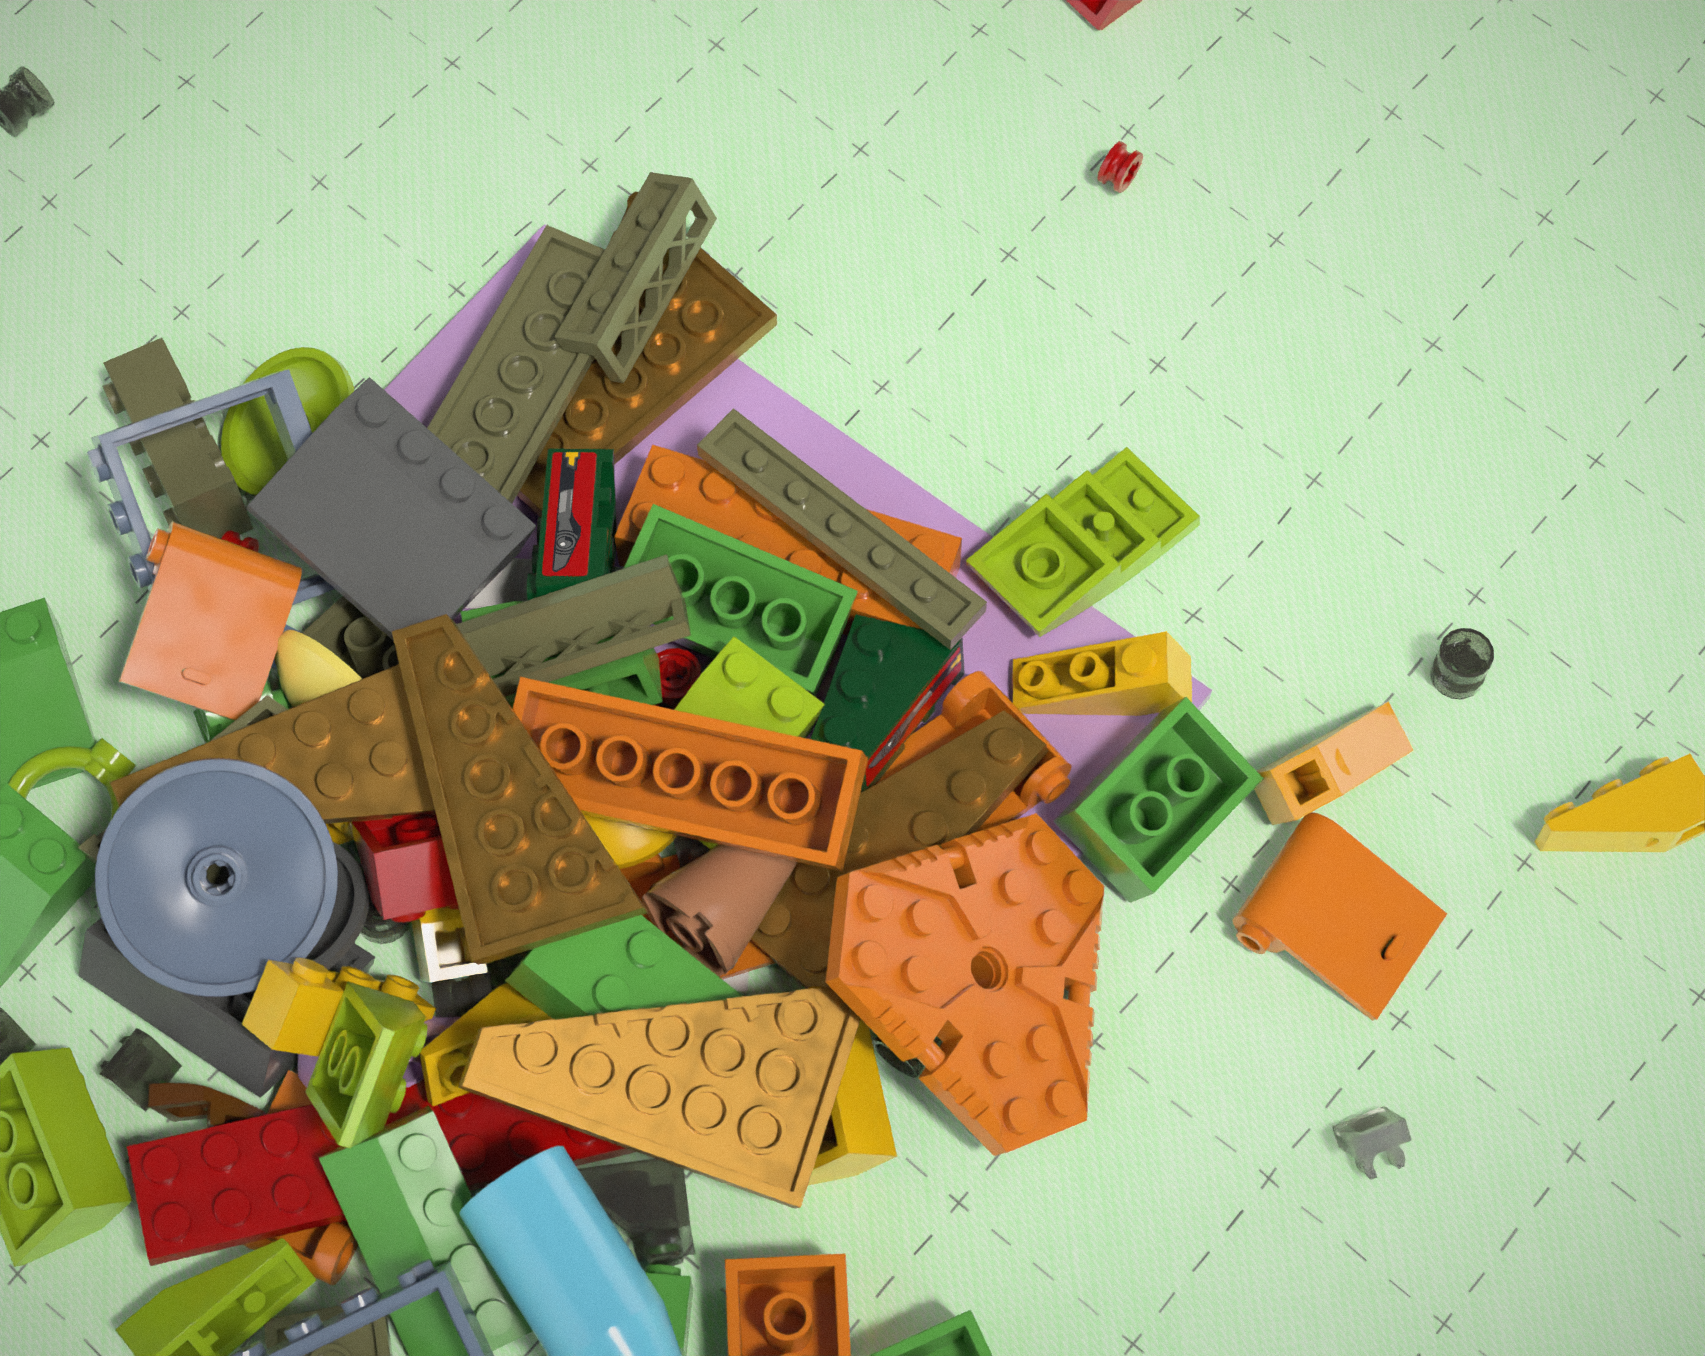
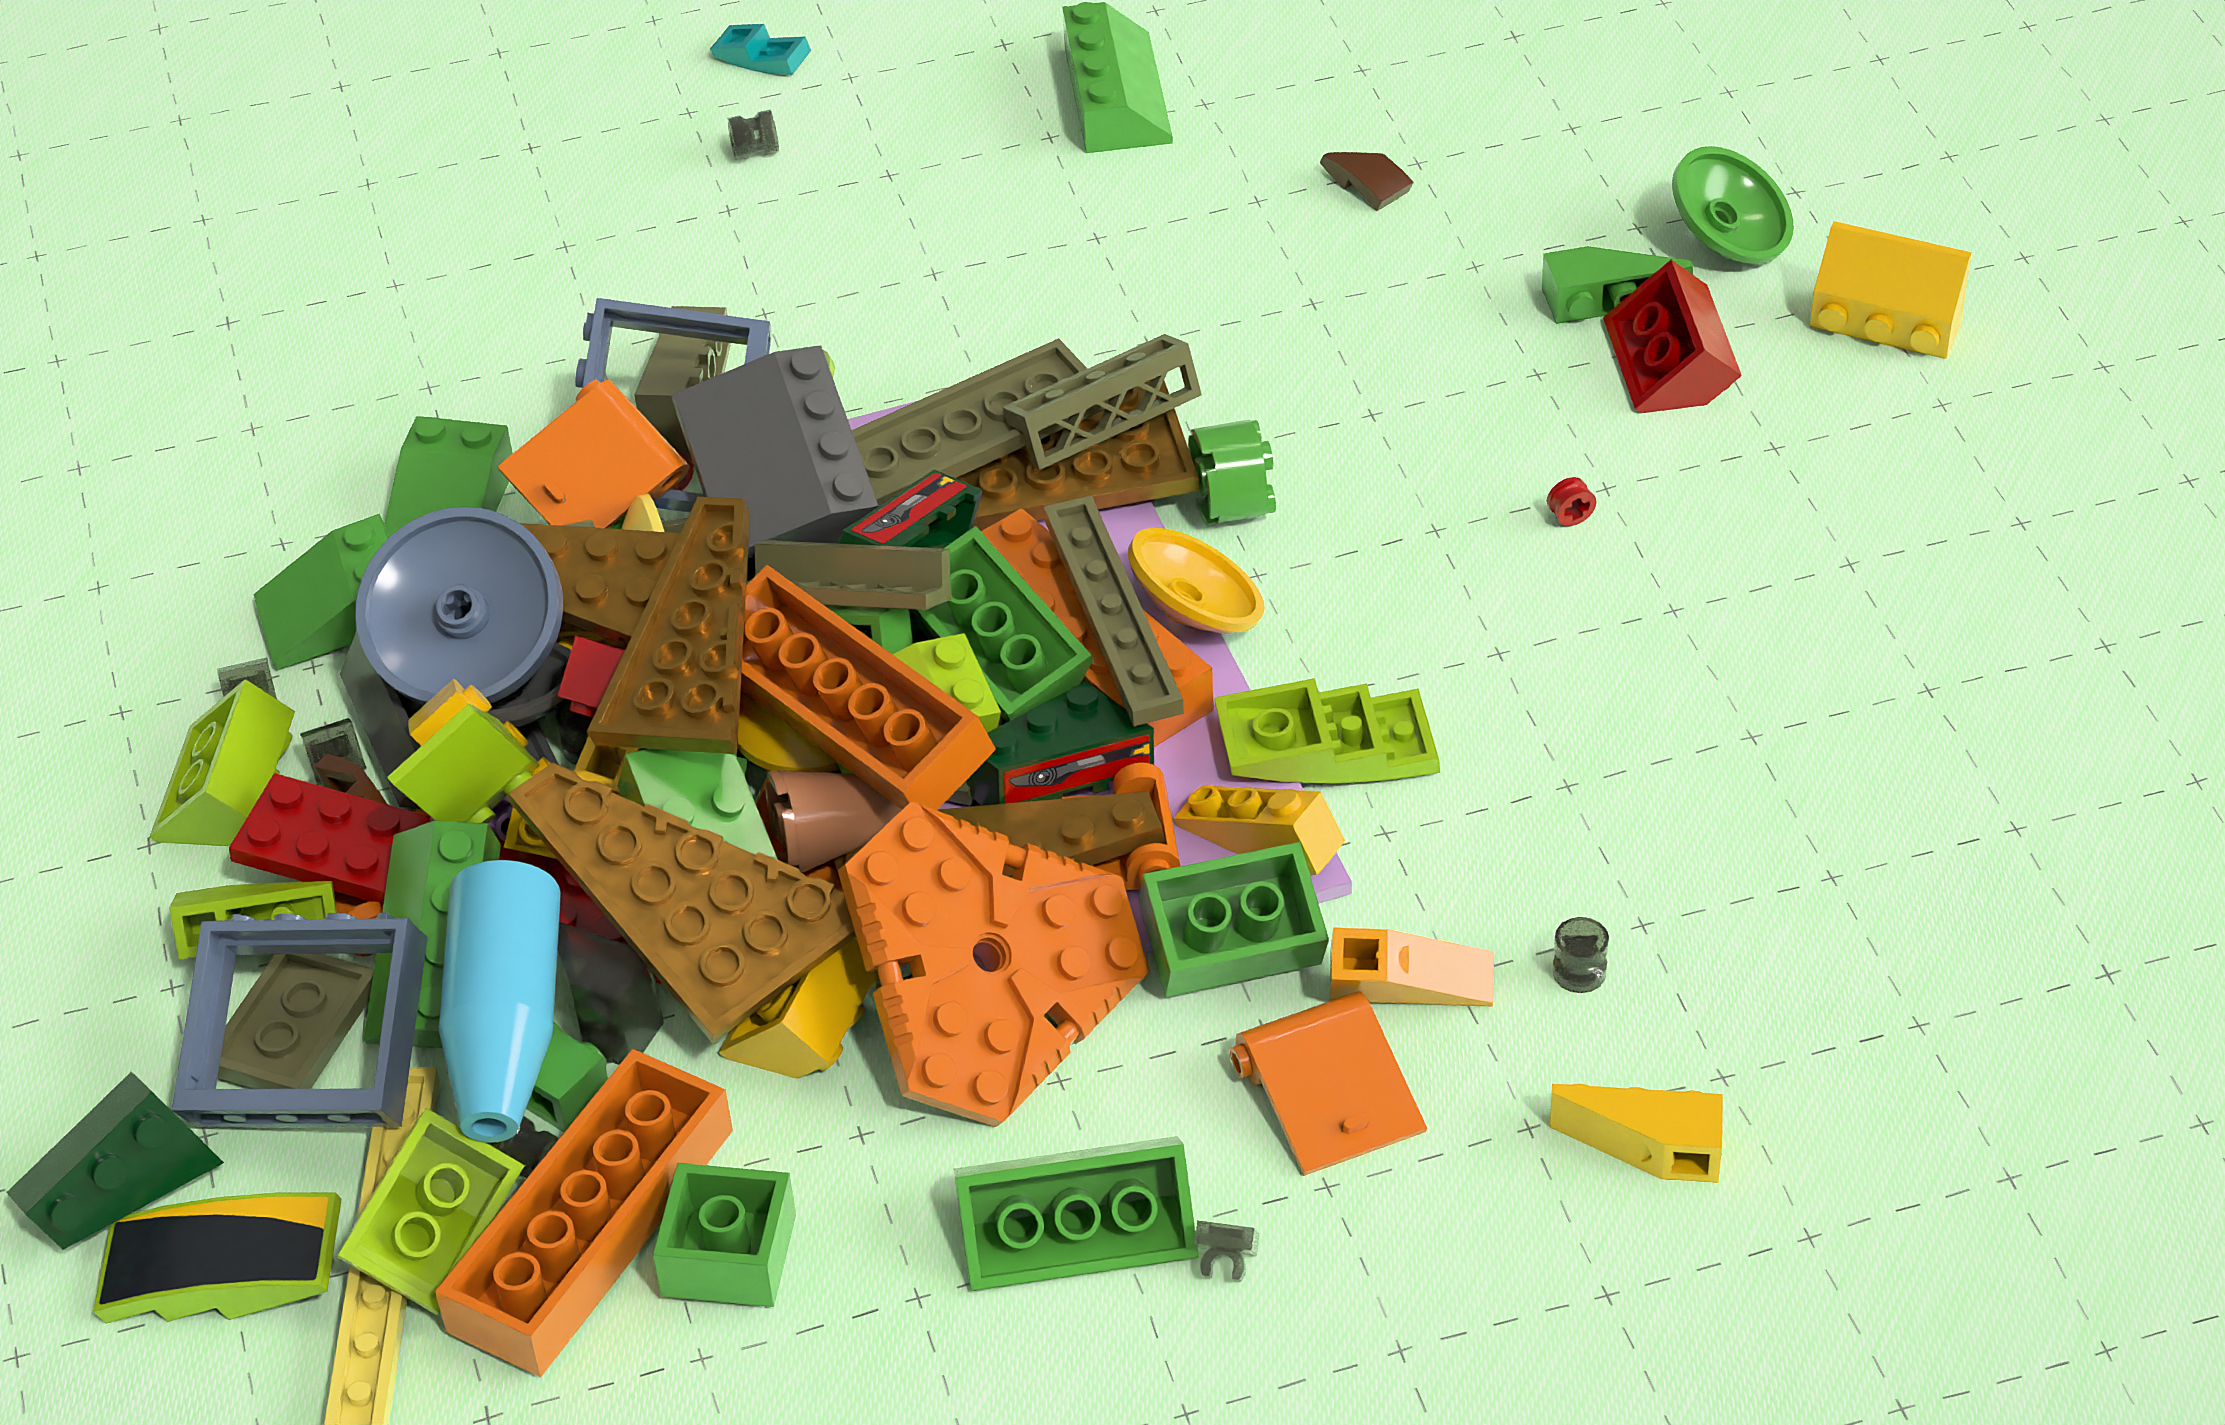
camera: 35 degrees right, 20 degrees down
(806, 292) = (1232, 471): none -> bright green brick
(866, 441) = (1194, 582): none -> yellow dish
(1221, 1180) = (1076, 1213): none -> bright green slope

